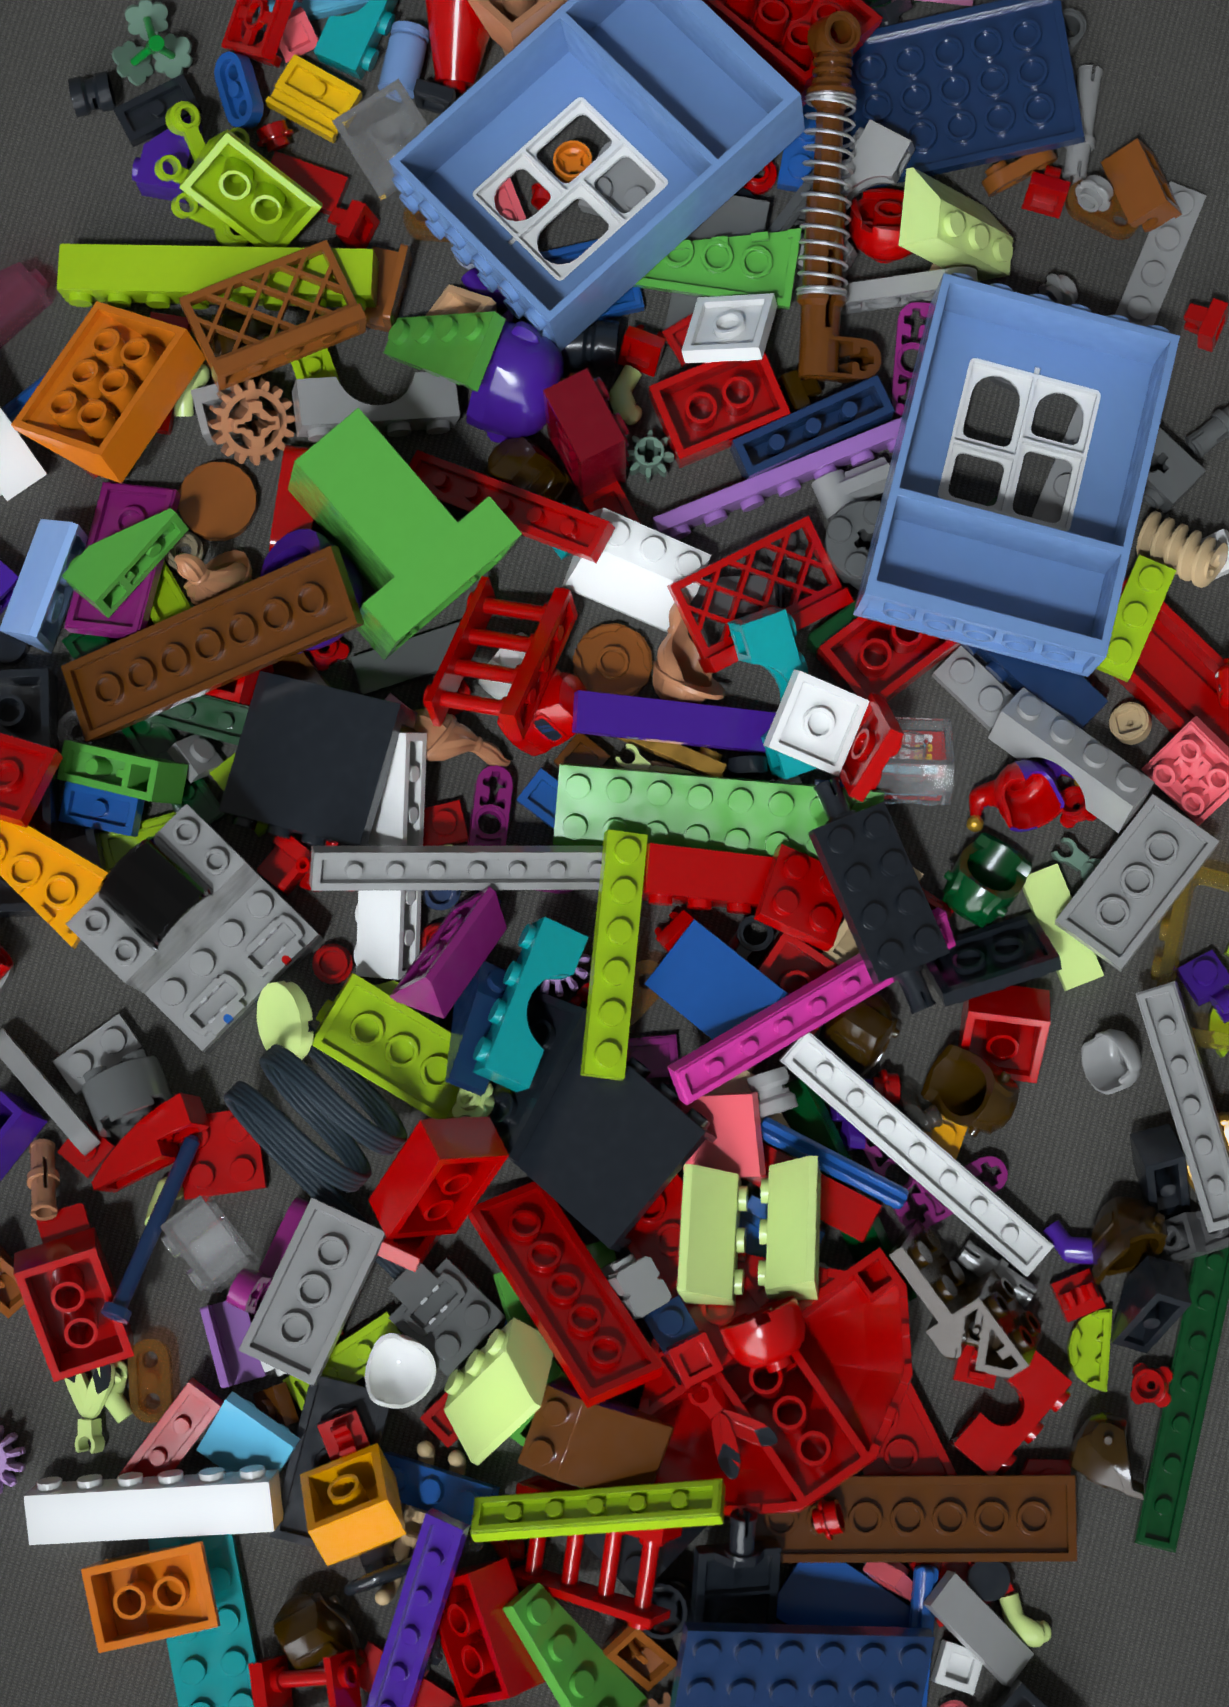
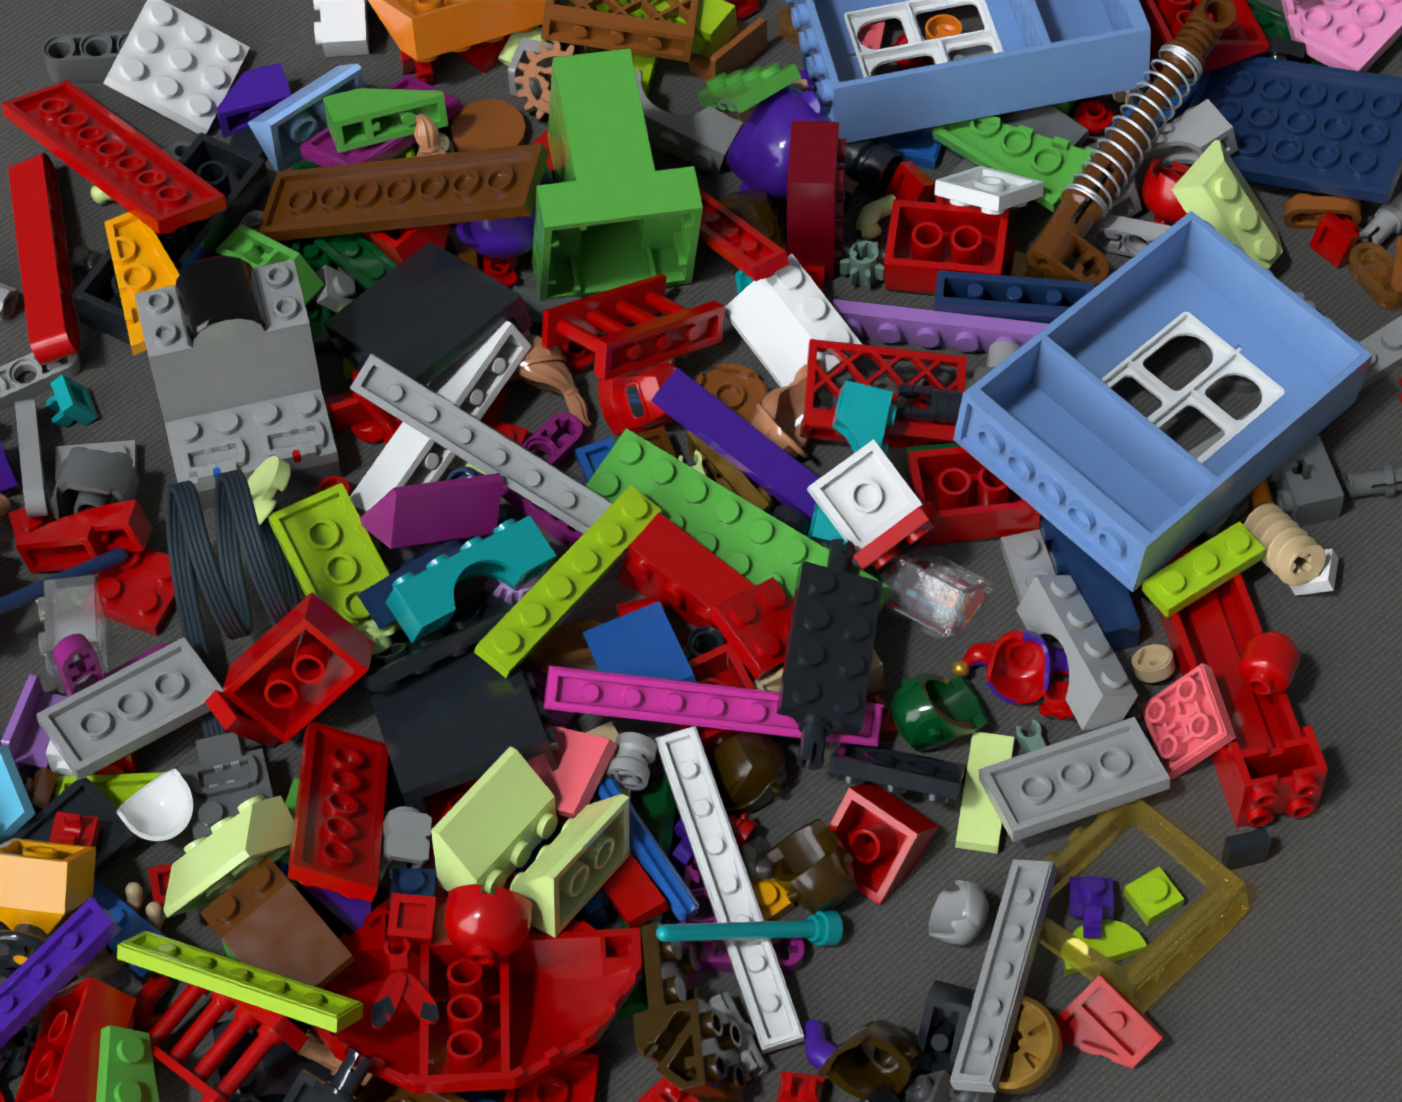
camera: 30 degrees right, 25 degrees down
(36, 1008) = (72, 401): none -> teal tile
(817, 583) = (941, 405): none -> black hinge
(1004, 1142) = (821, 929): none -> teal piece
(1094, 193) = (1374, 250): light grey plate -> none

